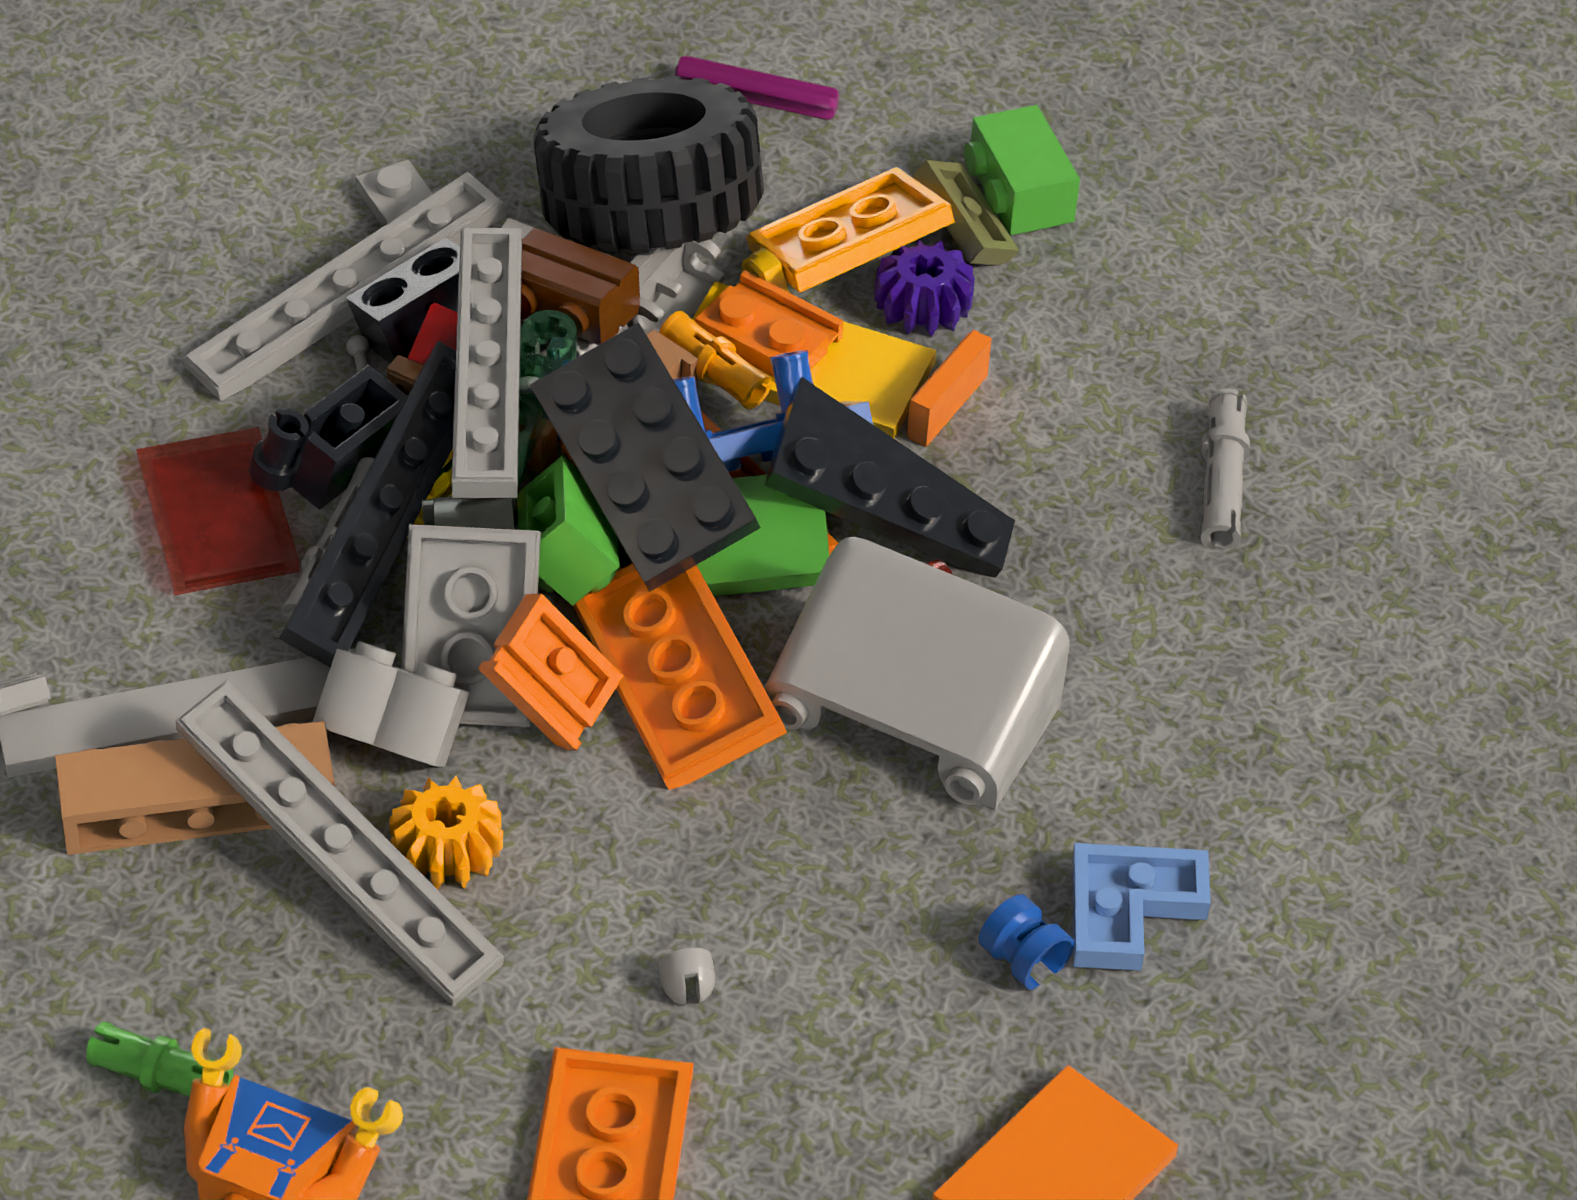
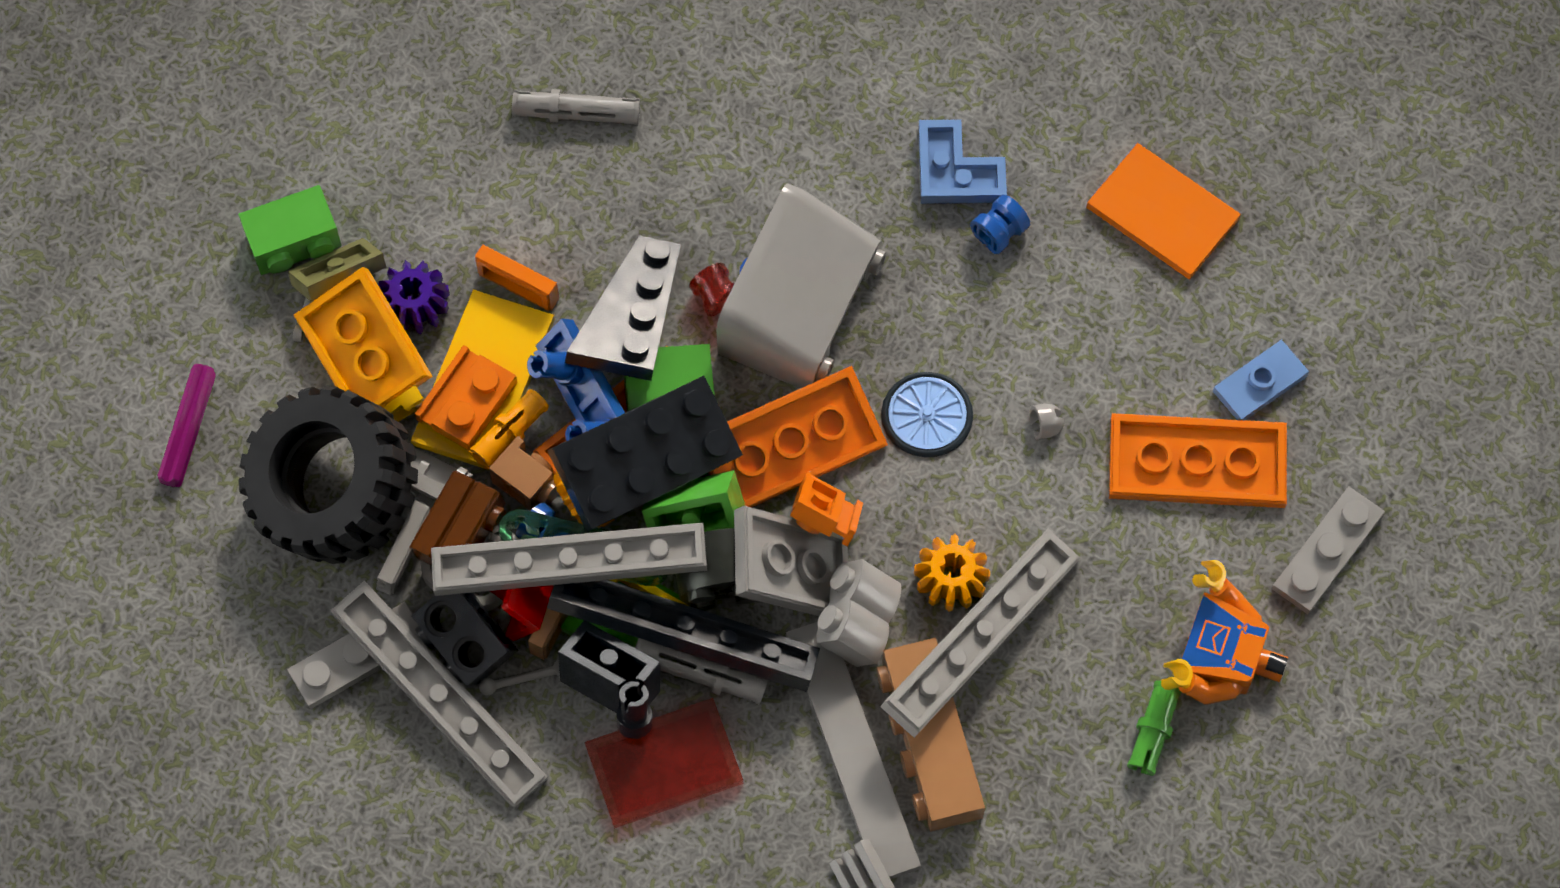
camera: 90 degrees left, 20 degrees up
(715, 840) = (927, 414): none -> light blue wheel

